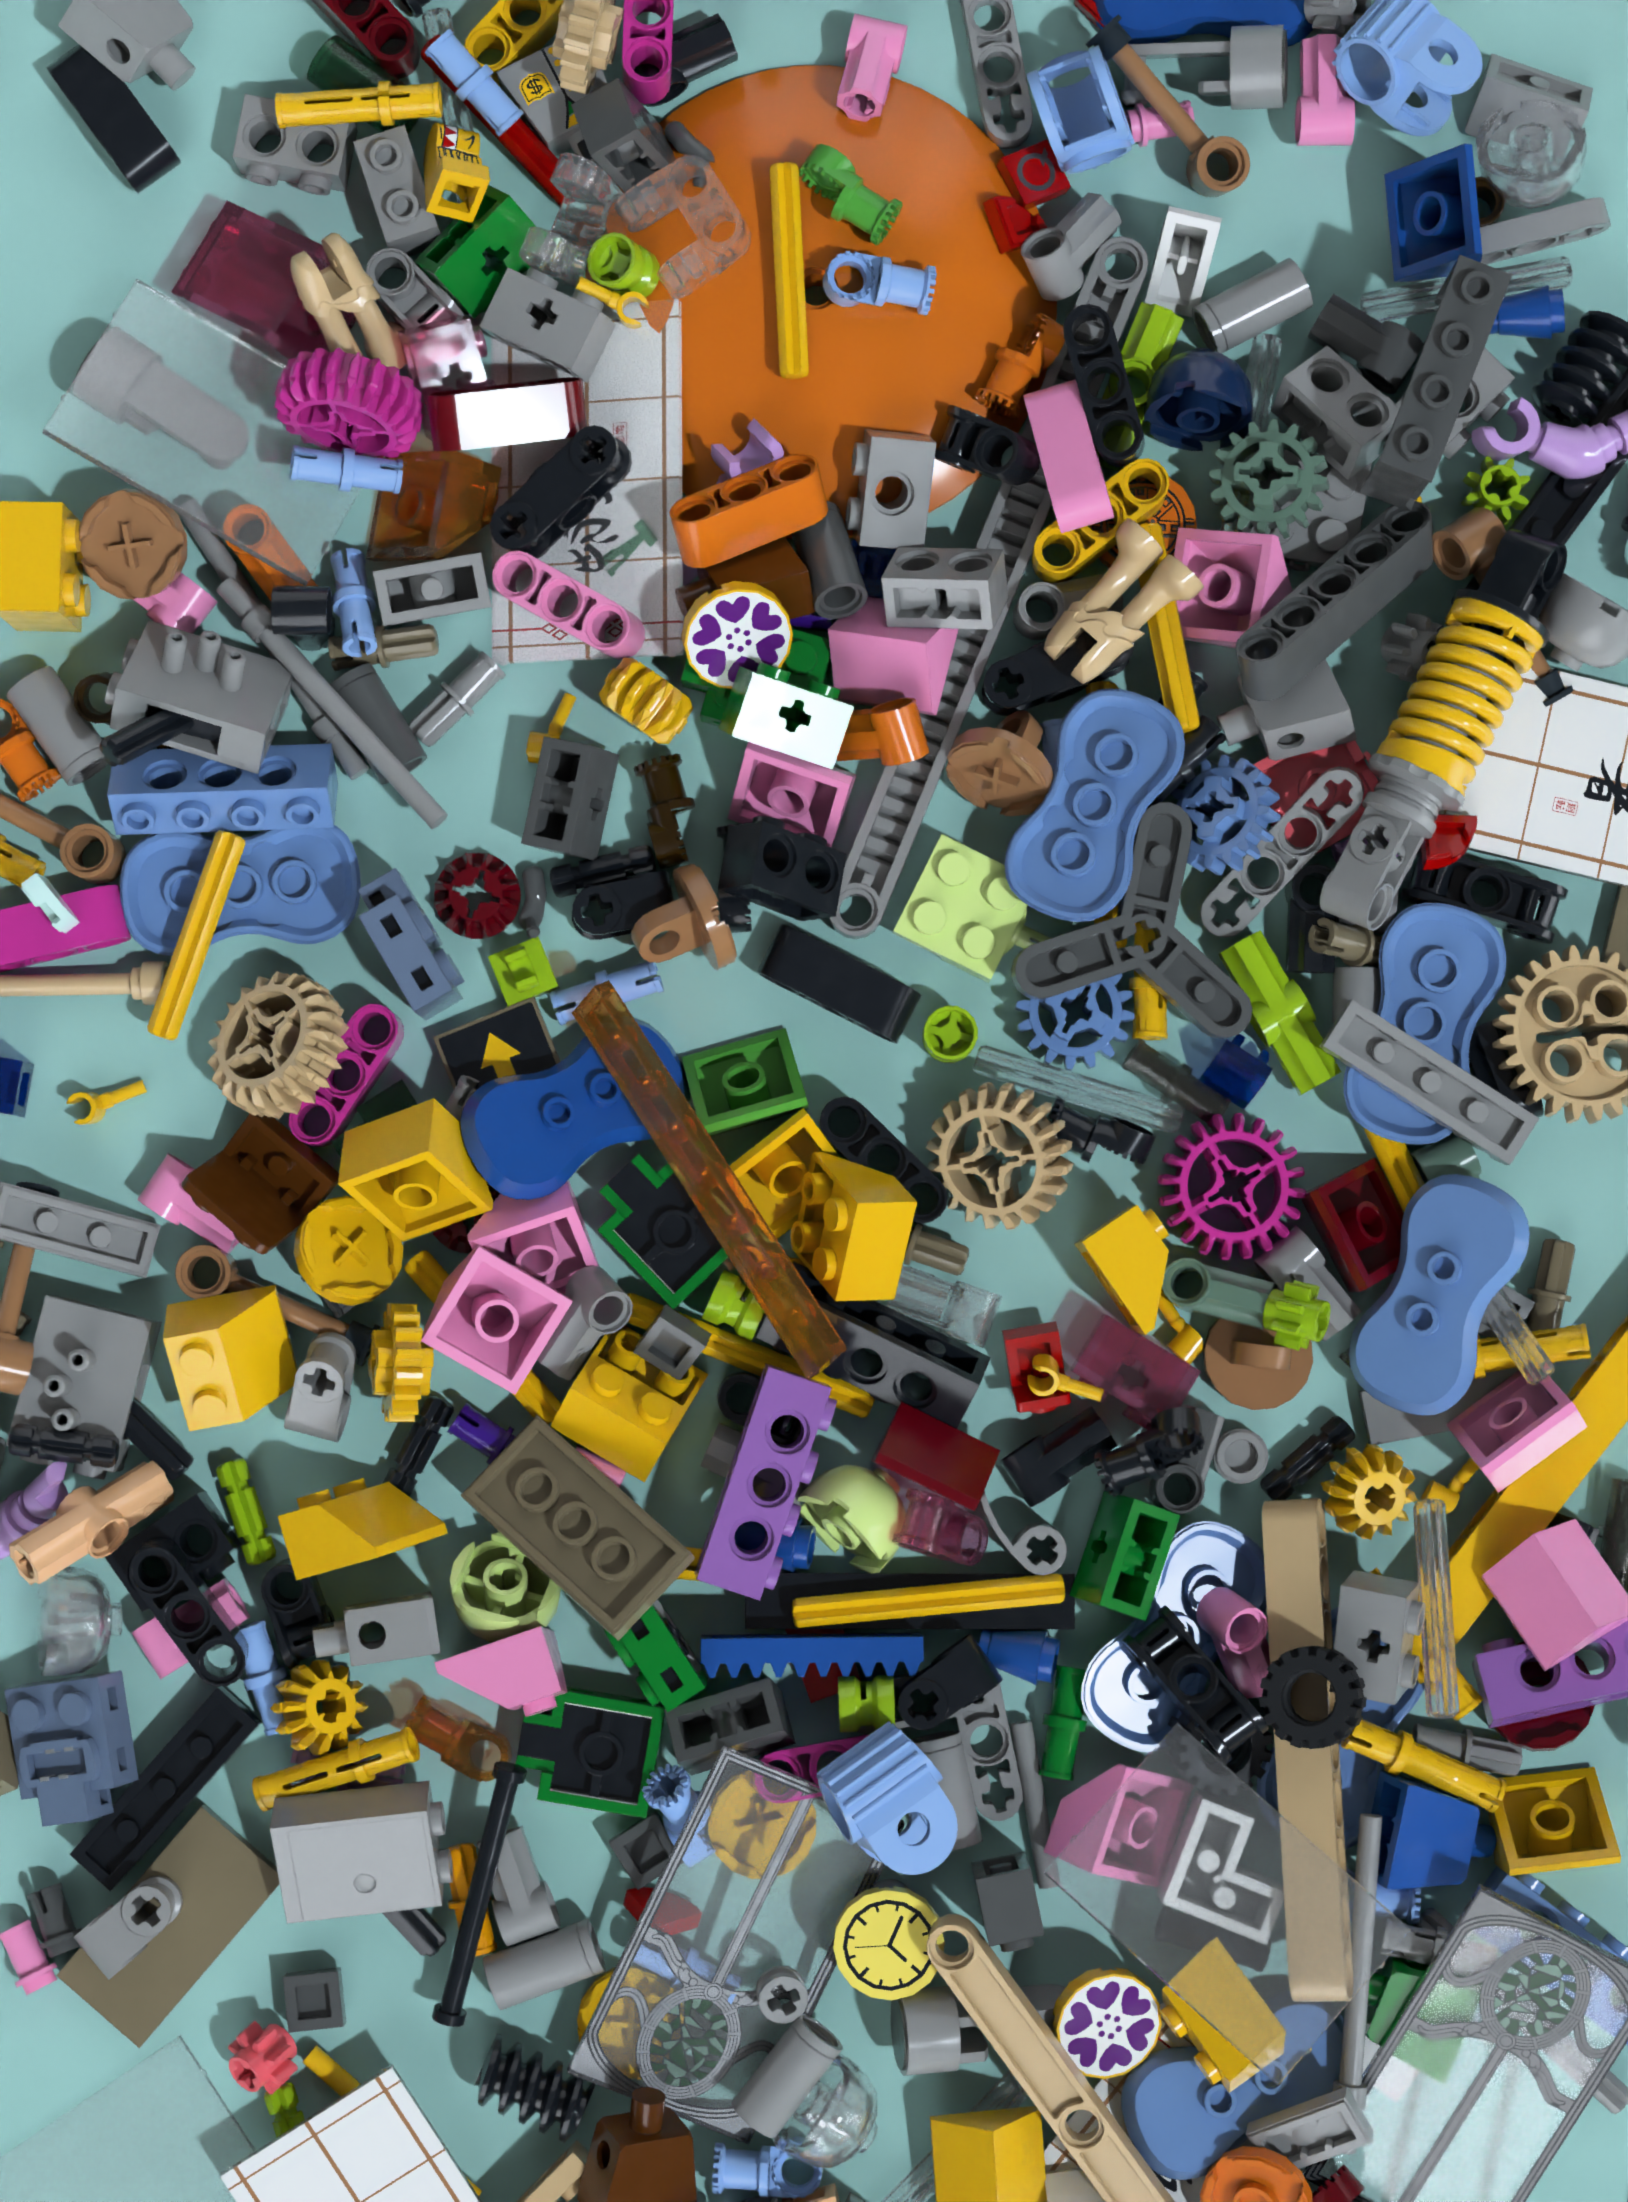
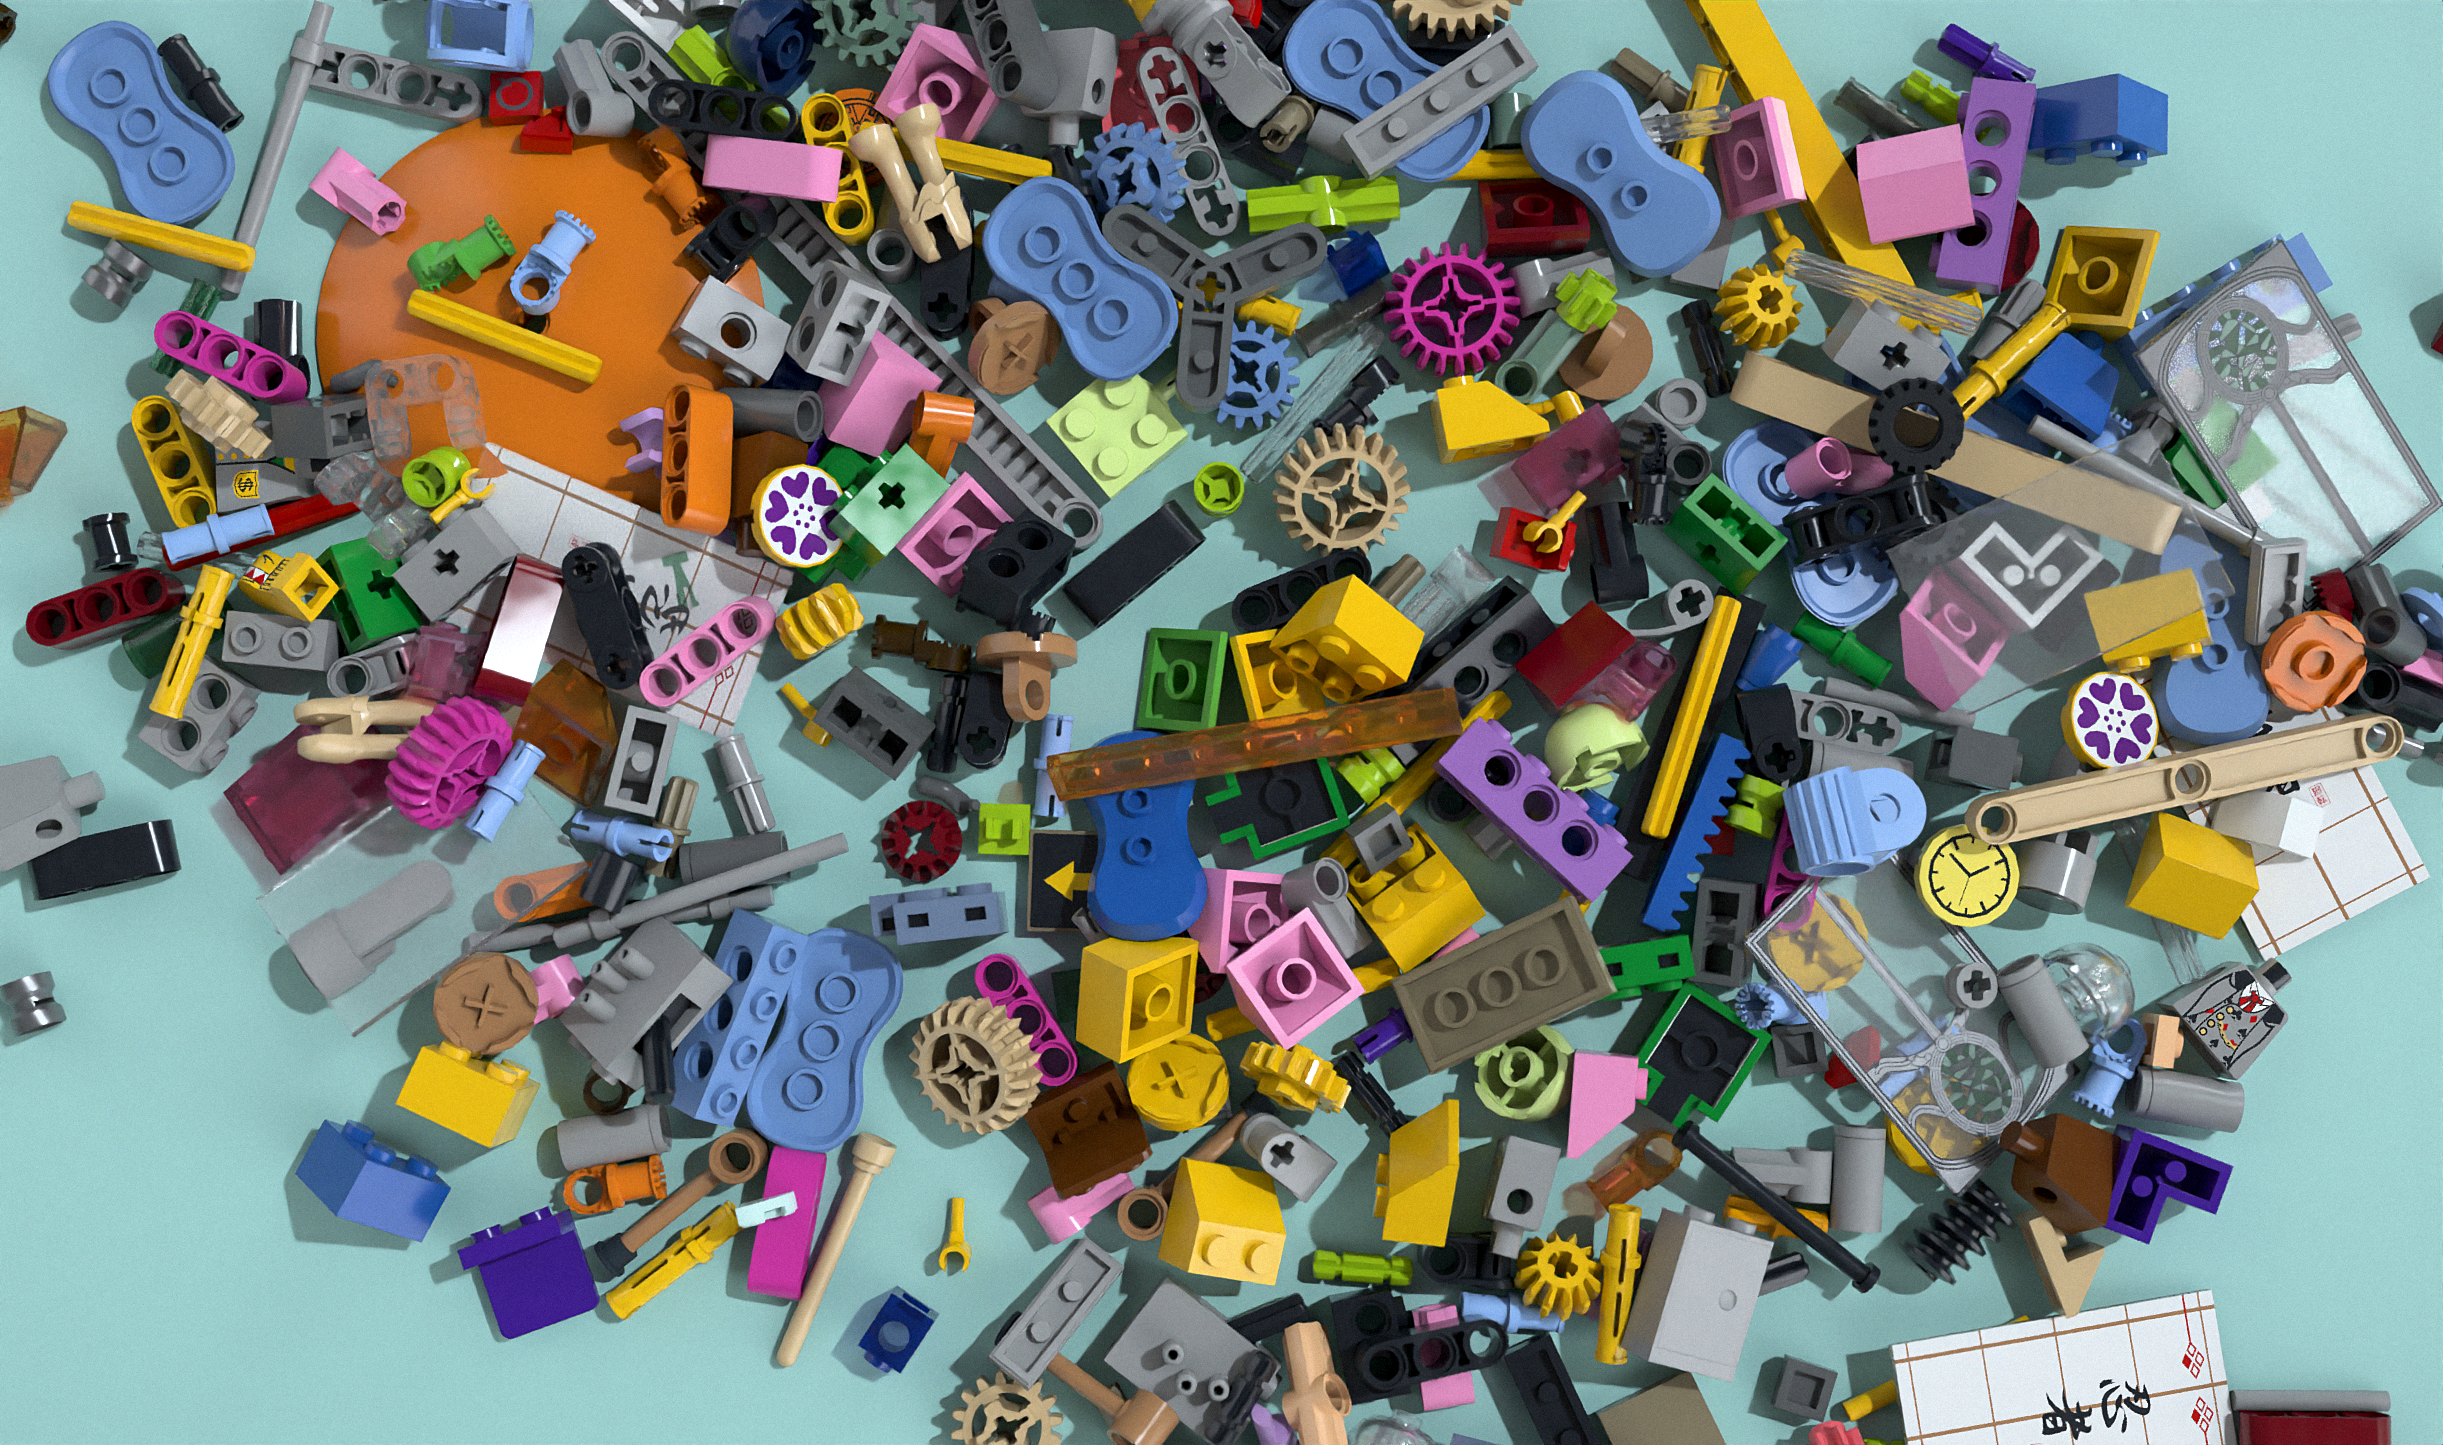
camera: 65 degrees left, 0 degrees up
(196, 935) = (849, 1095): yellow axle -> none

